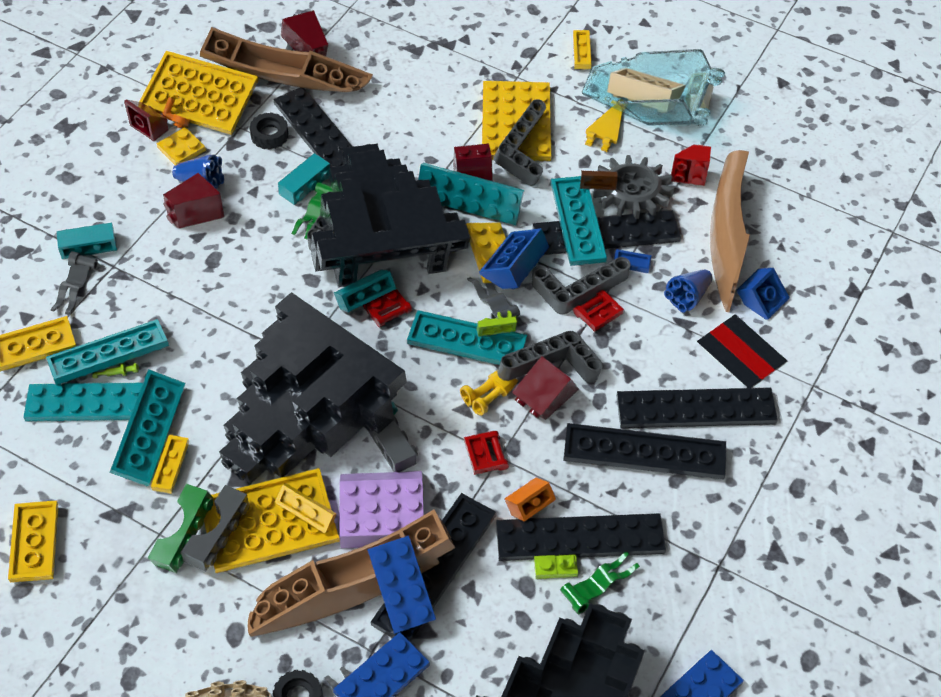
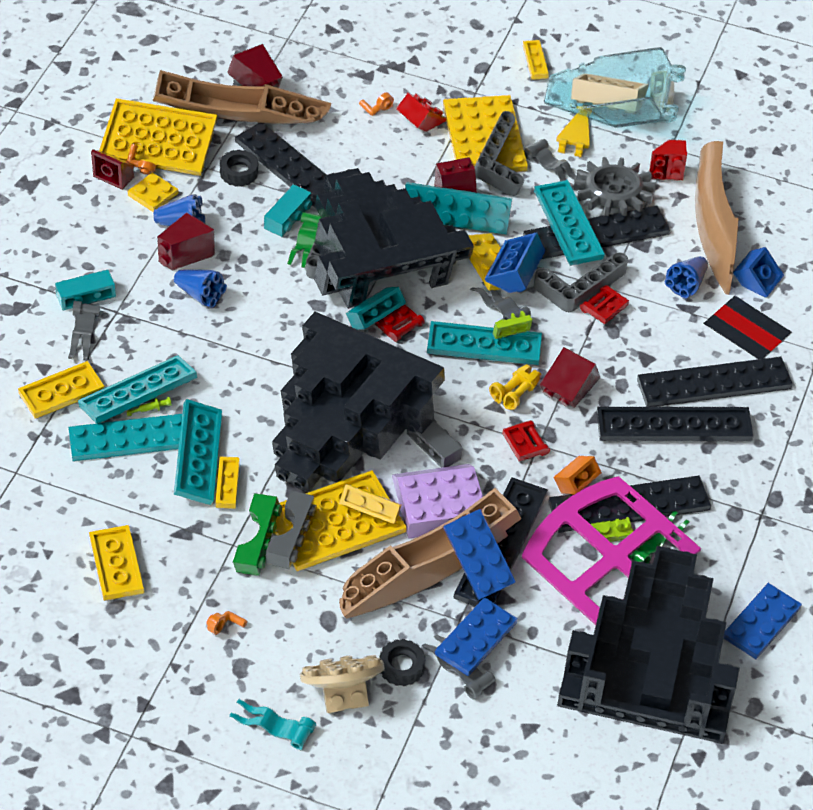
camera: 10 degrees left, 5 degrees down
(116, 623) = (217, 621): none -> orange plate
(200, 249) = (202, 285): none -> blue cone
(424, 78) = (383, 102): none -> orange plate
(458, 91) = (421, 112): none -> red slope
(550, 597) = (613, 555): none -> dark pink window
(562, 346) = (577, 339): dark grey beam -> none
(572, 151) = (547, 160): none -> dark grey flag
(598, 180) = (582, 182): reddish brown plate -> none
(638, 261) = (636, 257): blue tile -> none

